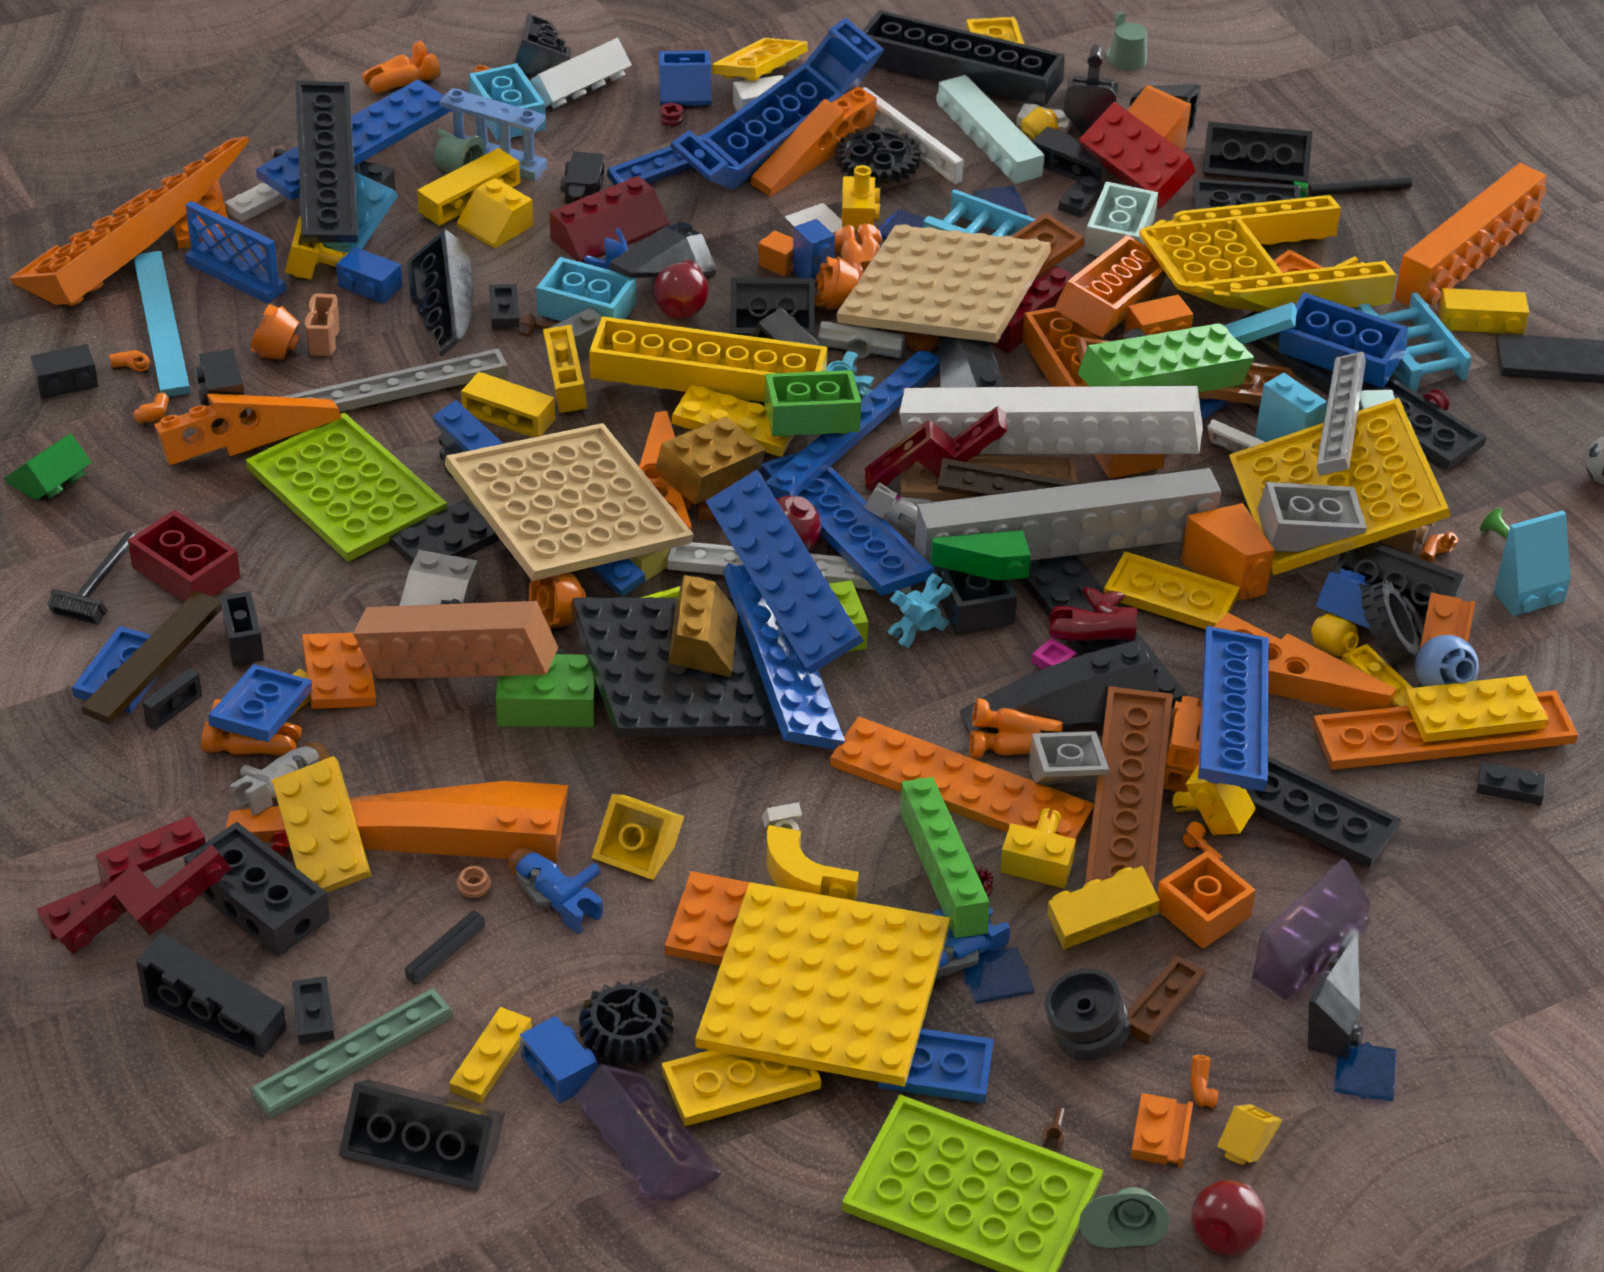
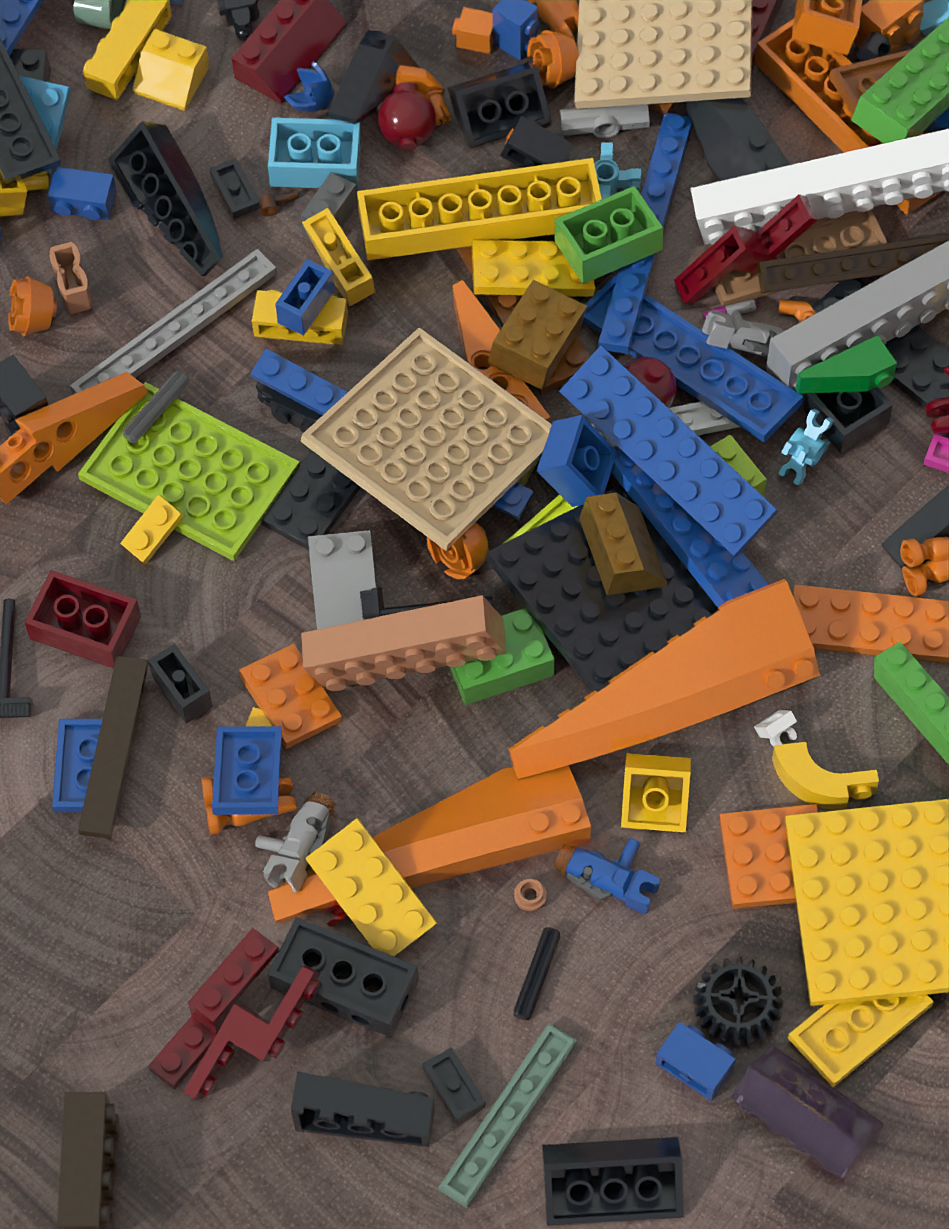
camera: 15 degrees left, 20 degrees up
(172, 699) = (155, 775): black plate -> none
(286, 515) = (152, 529): none -> yellow plate
(341, 428) = (155, 406): none -> dark grey axle
(490, 1055) = (630, 1074): yellow plate -> none
(513, 377) = (305, 297): none -> blue brick
(694, 550) = (576, 460): none -> blue brick
(715, 277) = (427, 85): none -> orange arm
(740, 742) = (721, 664): none -> orange wedge

